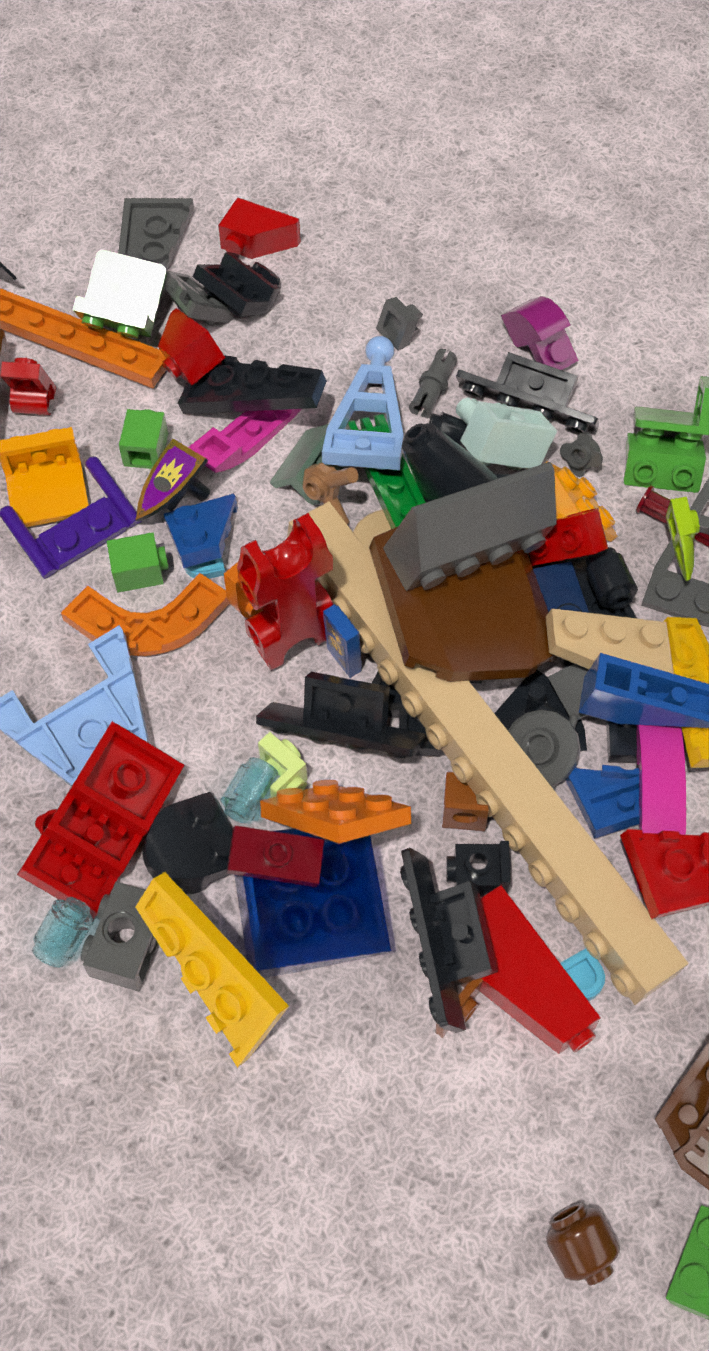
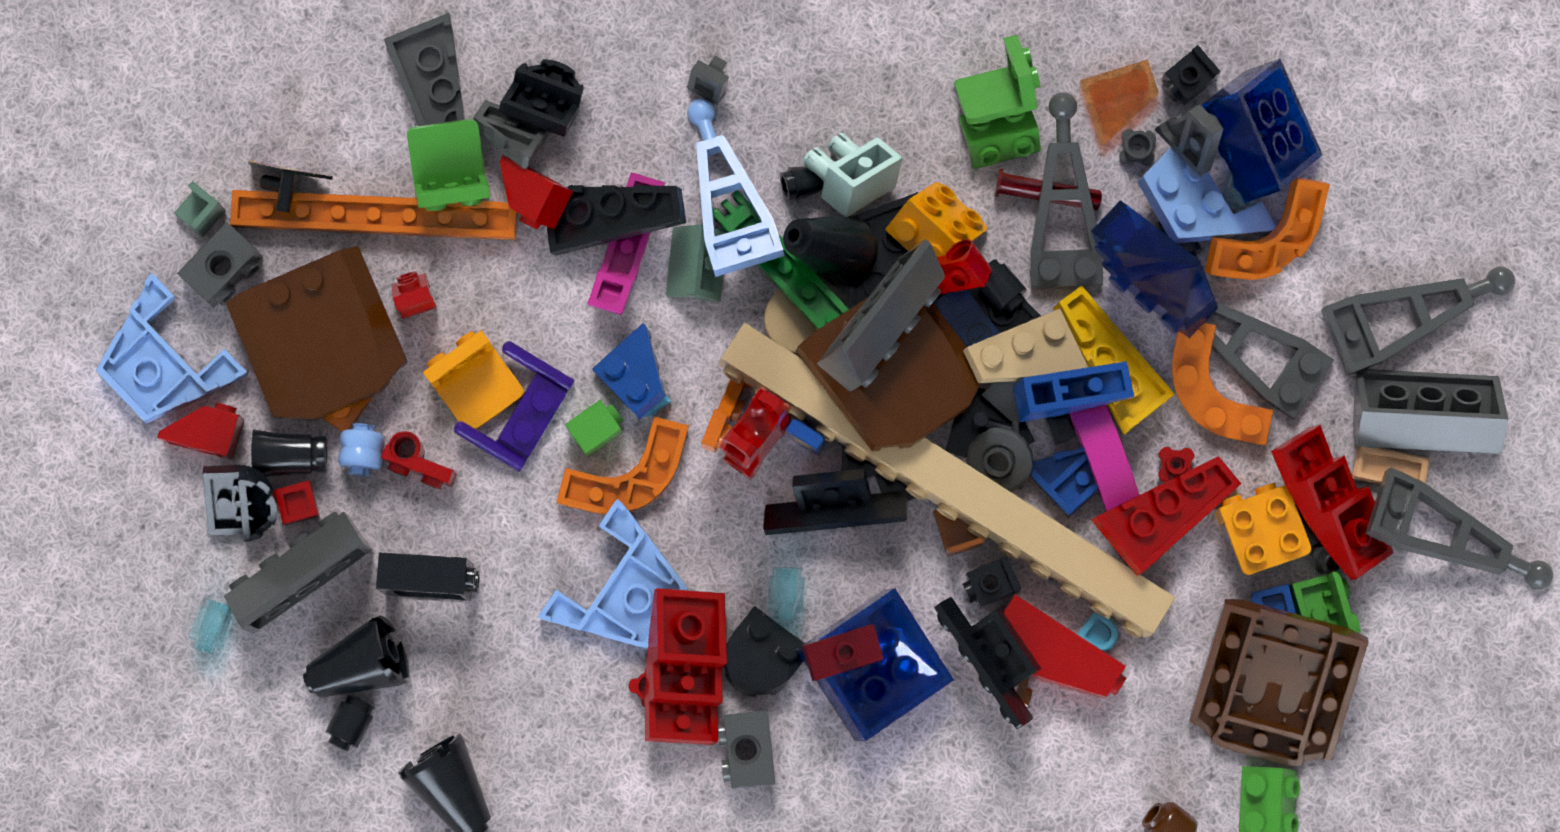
camera: 20 degrees left, 20 degrees up
(62, 931) = (700, 768): clear light blue brick -> none
(143, 438) = (538, 301): bright green brick -> none
(171, 479) = (586, 339): shield -> none
(229, 985) = (840, 754): yellow wing -> none
(257, 230) = (527, 26): red slope -> none
(286, 761) = (801, 555): yellowish green bracket -> none
(324, 482) = (726, 290): medium nougat piece -> none
(335, 811) = (868, 594): orange plate -> none
(433, 383) = (766, 132): dark grey pin -> none
(534, 387) = (859, 104): bracket -> none
(542, 327) = (843, 40): magenta brick -> none
(591, 451) = (928, 158): dark grey plate -> none
(683, 526) = (1044, 213): lime plate -> none

